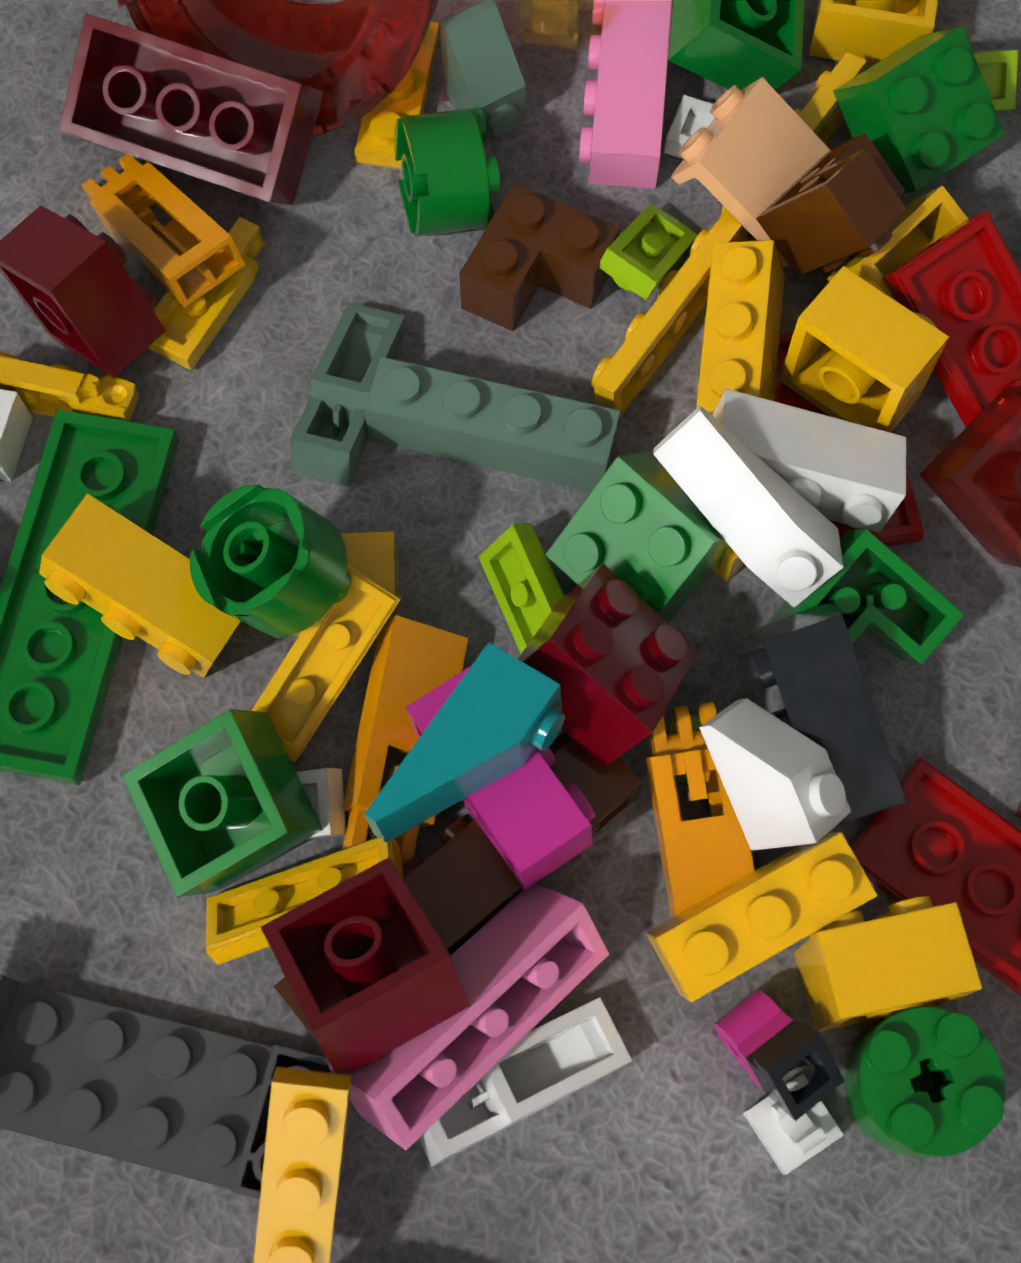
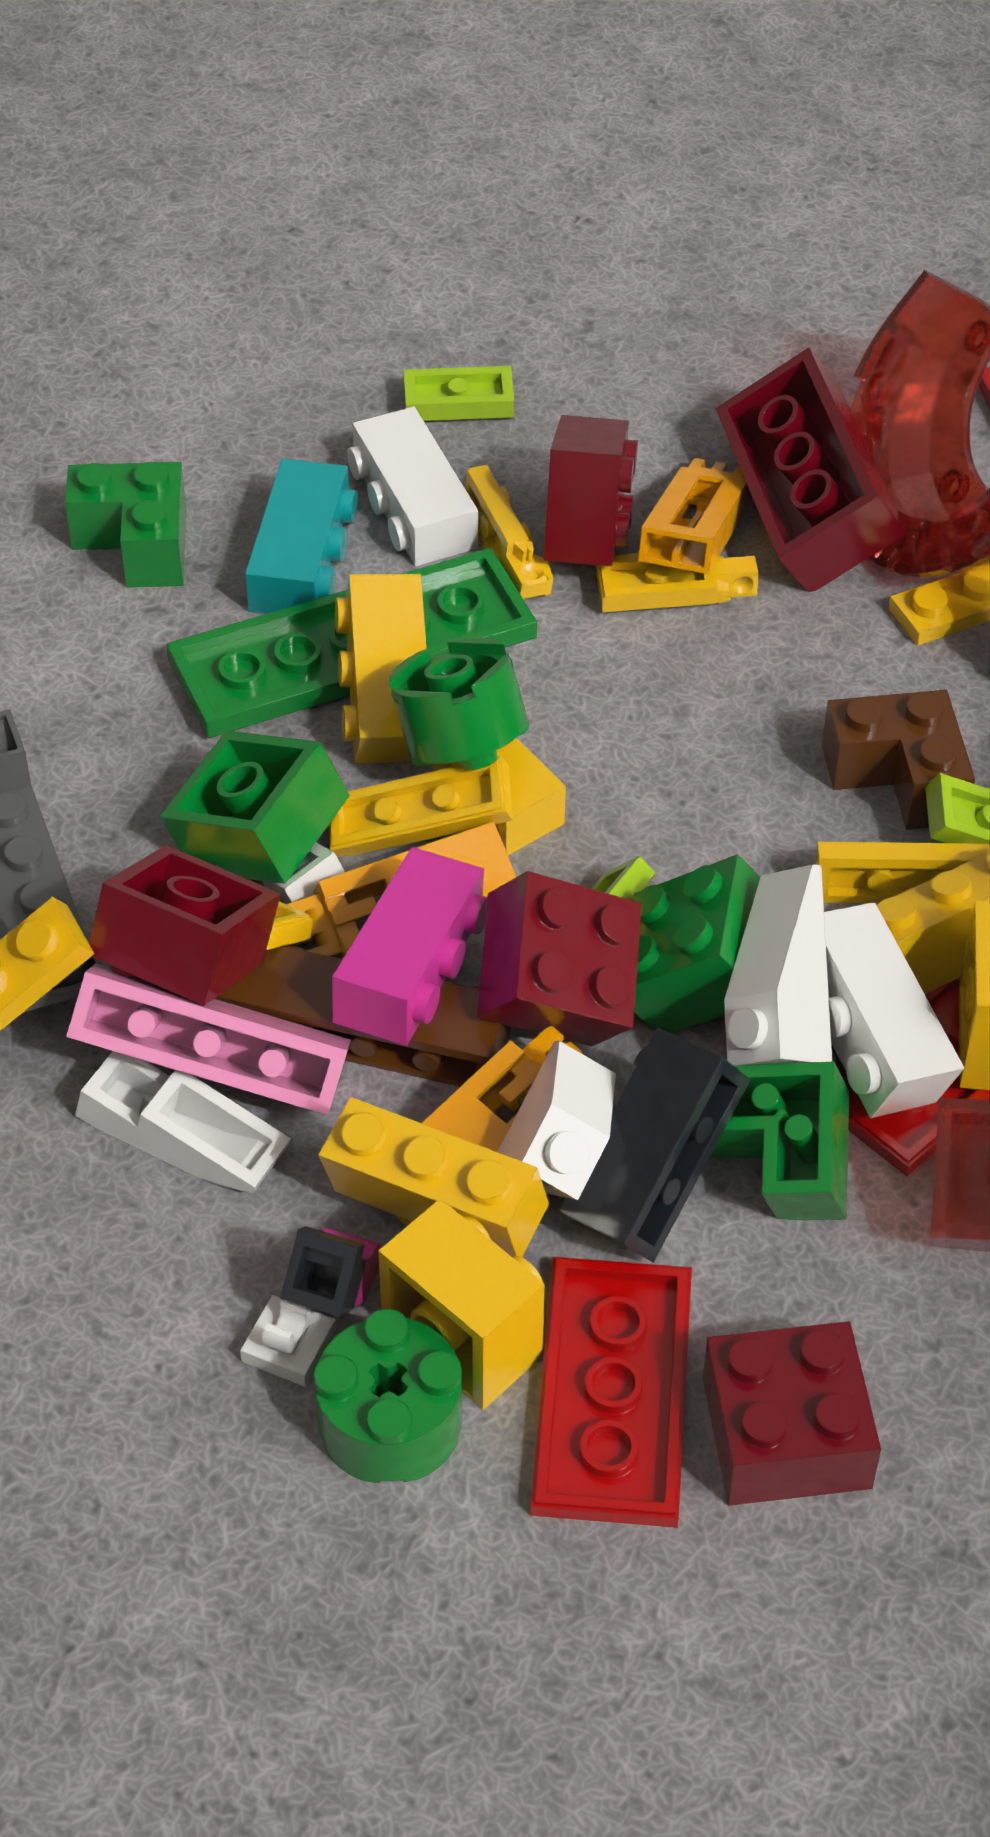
camera: 55 degrees right, 20 degrees down
(333, 425) = (667, 708): sand green slope -> none
(445, 171) = (917, 644): green brick -> none
(474, 739) = (404, 879): teal slope -> none
(491, 424) = (715, 787): sand green brick -> none

